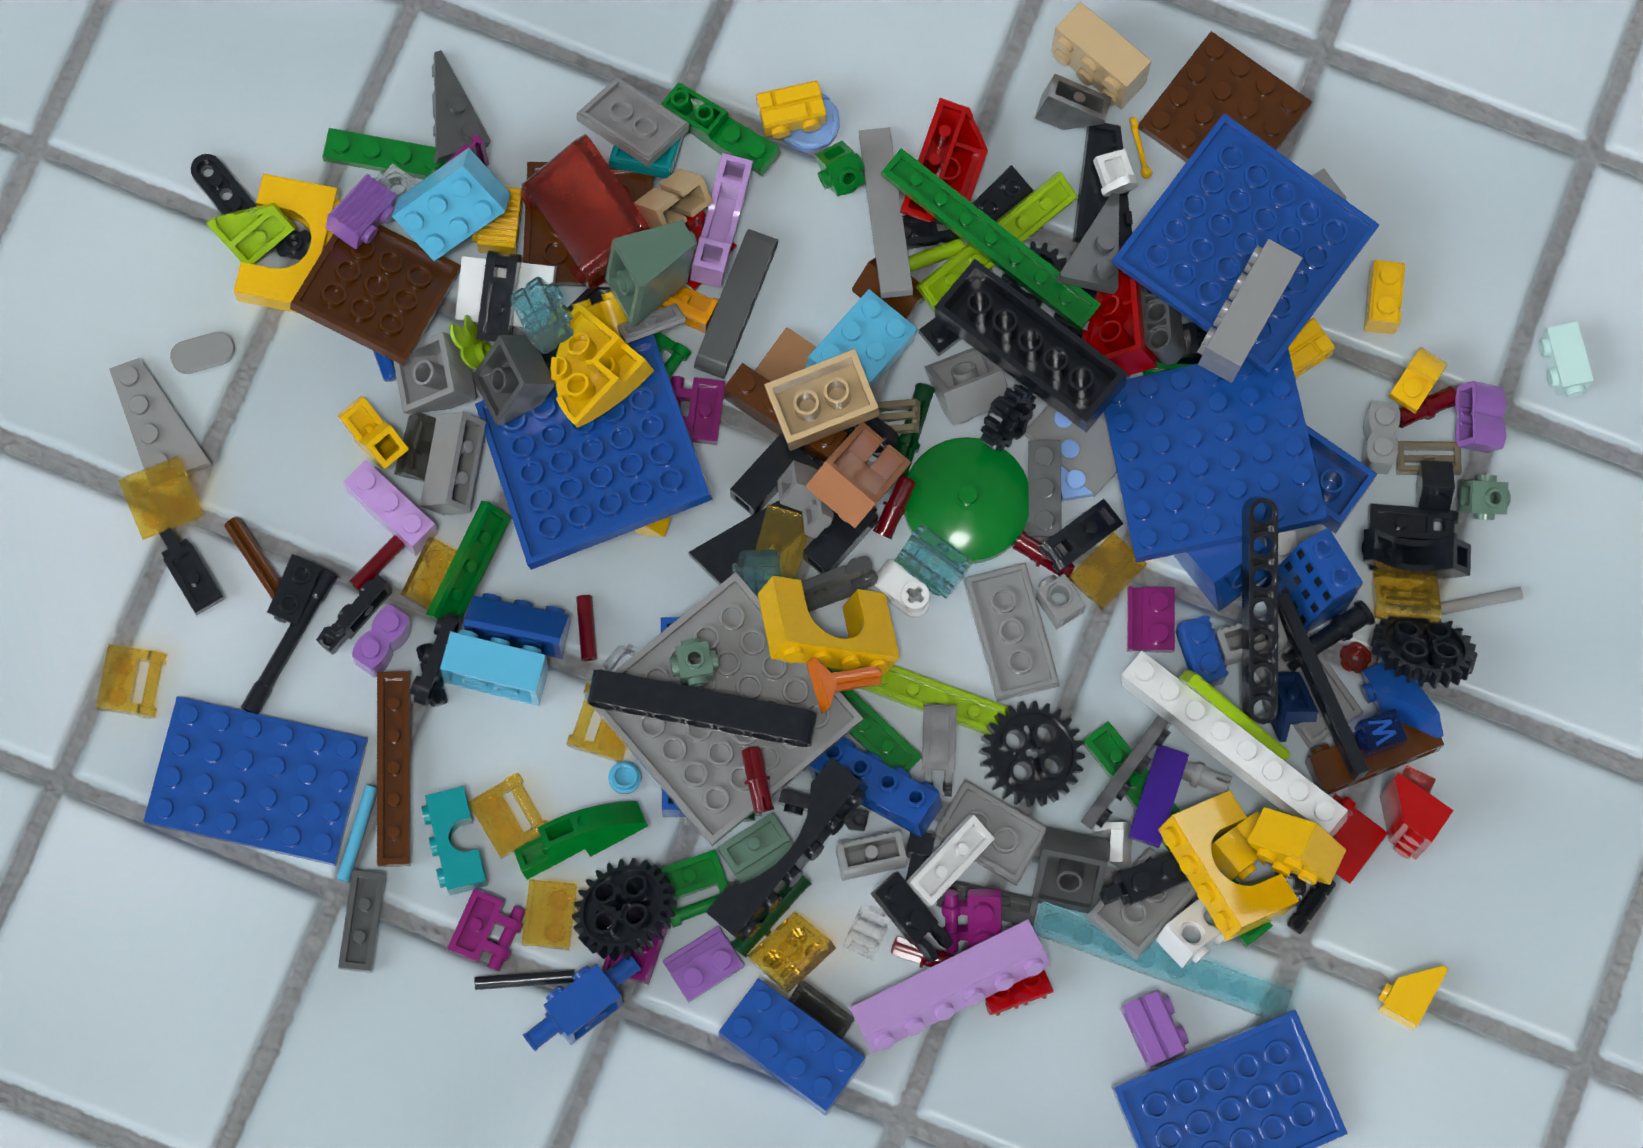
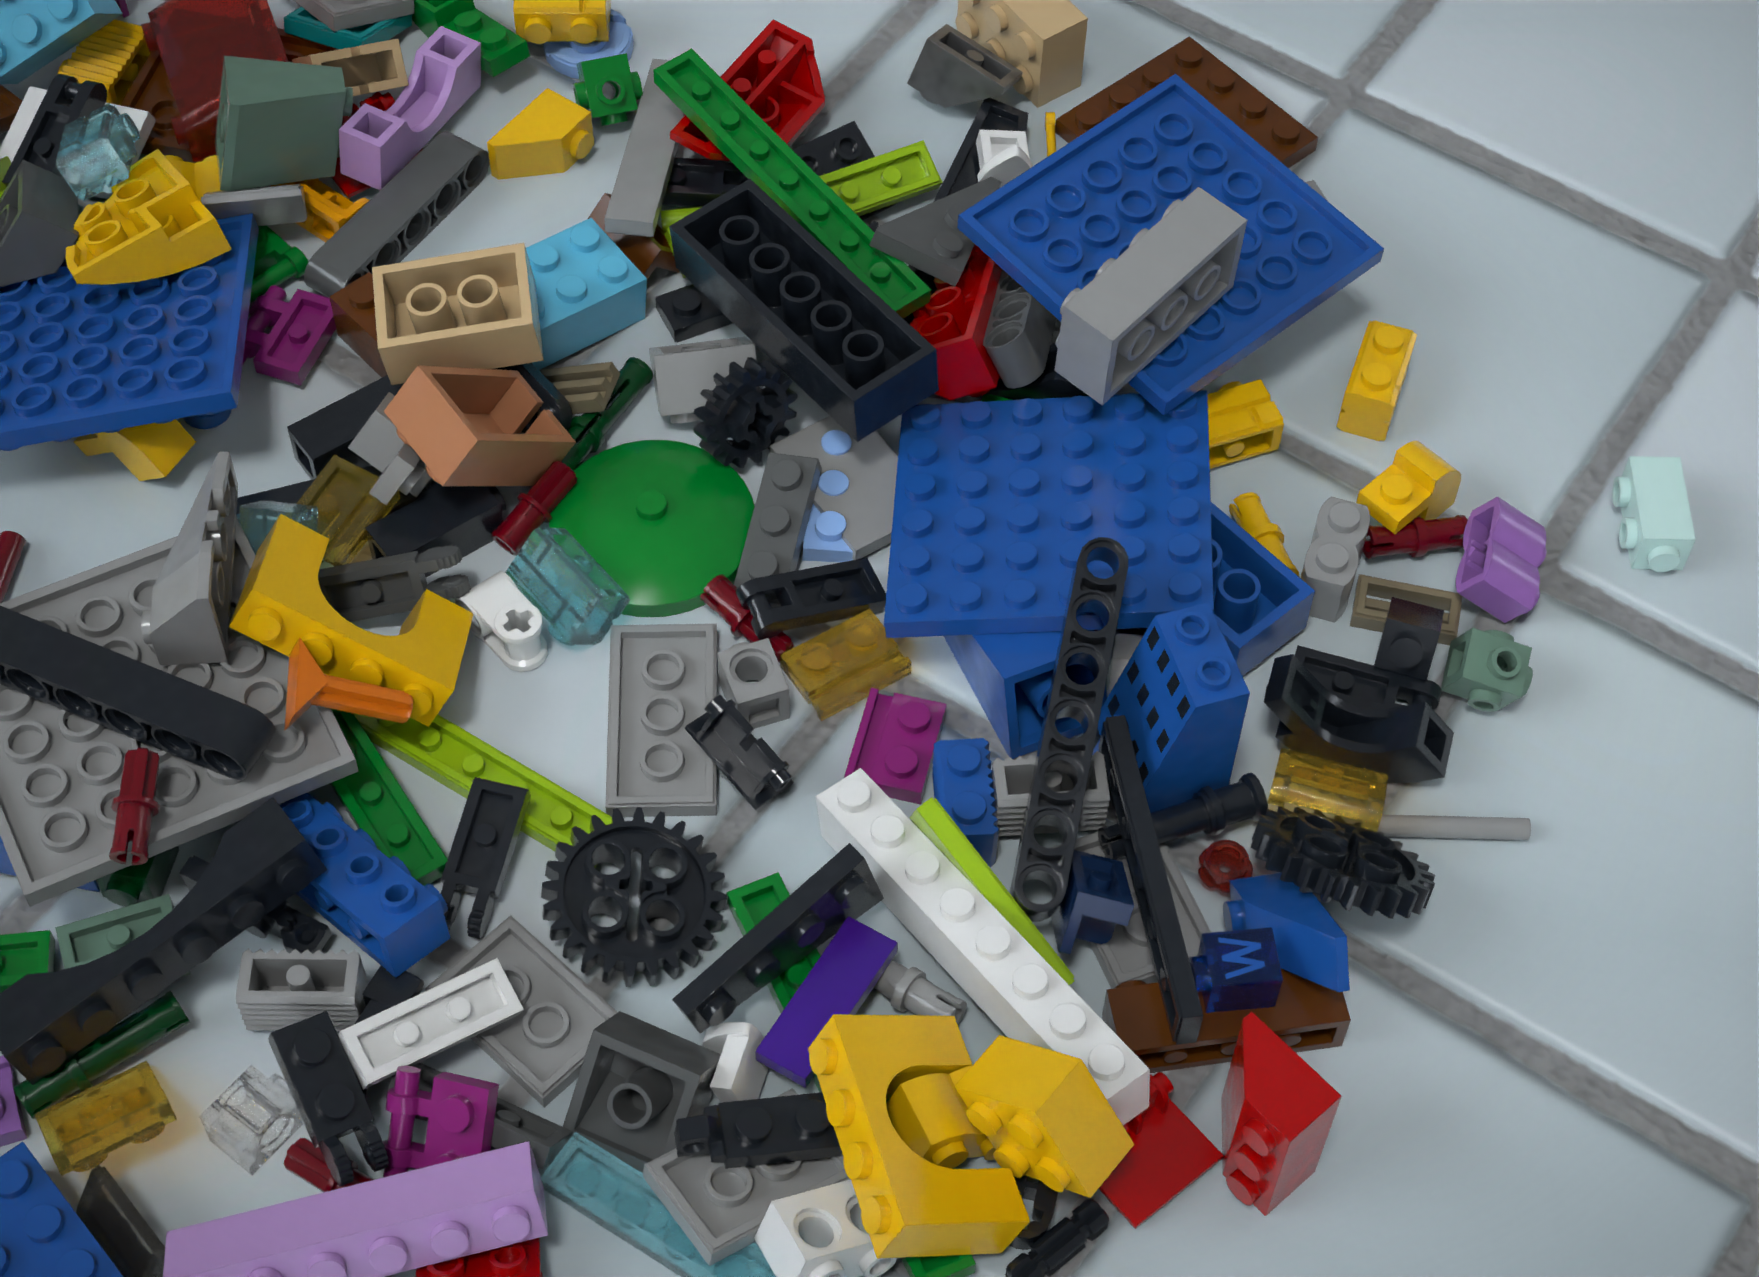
camera: 15 degrees right, 20 degrees down
(694, 674) = (104, 609): sand green brick -> none
(741, 638) = (195, 585): none -> light grey wedge
(810, 217) = (542, 138): none -> yellow slope
(1065, 649) = (738, 754): none -> black hinge
(1335, 428) = (1256, 522): none -> yellow pin

